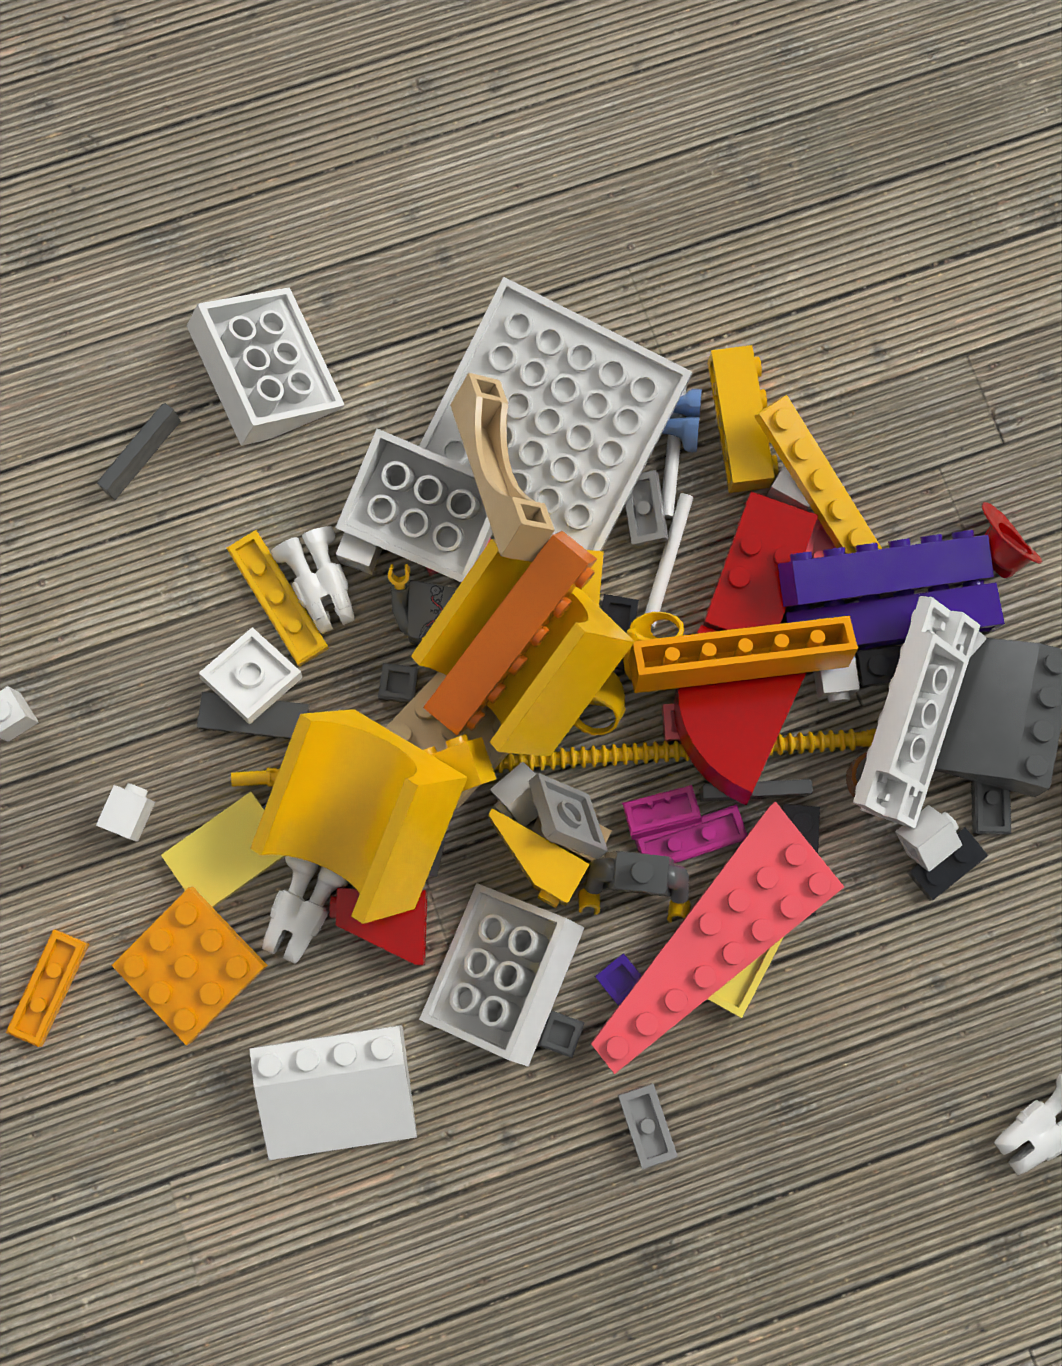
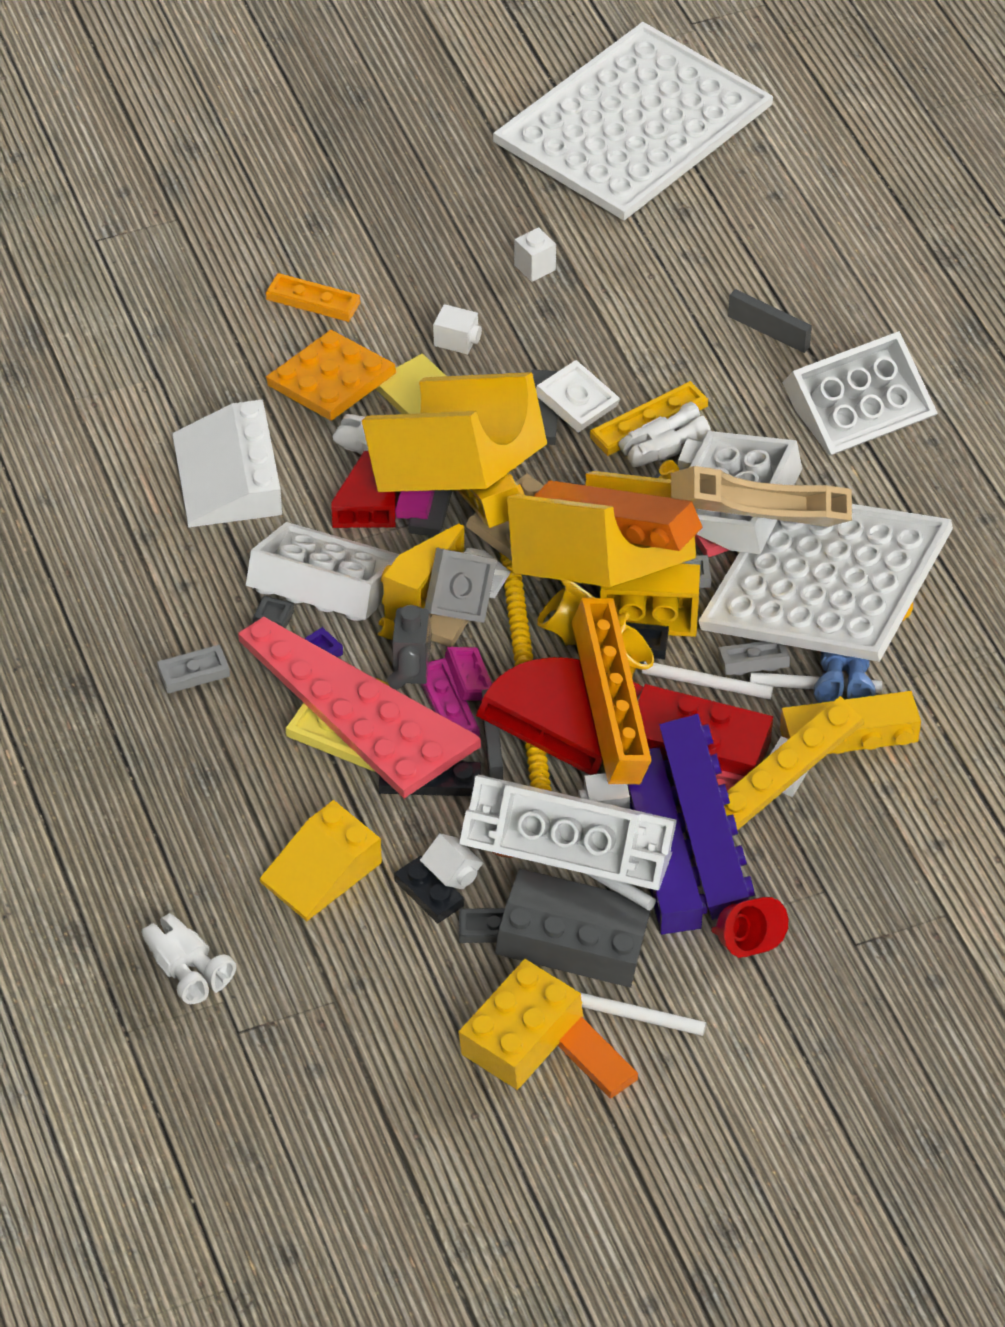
camera: 90 degrees right, 30 degrees down
(921, 977) = (323, 861): none -> yellow slope

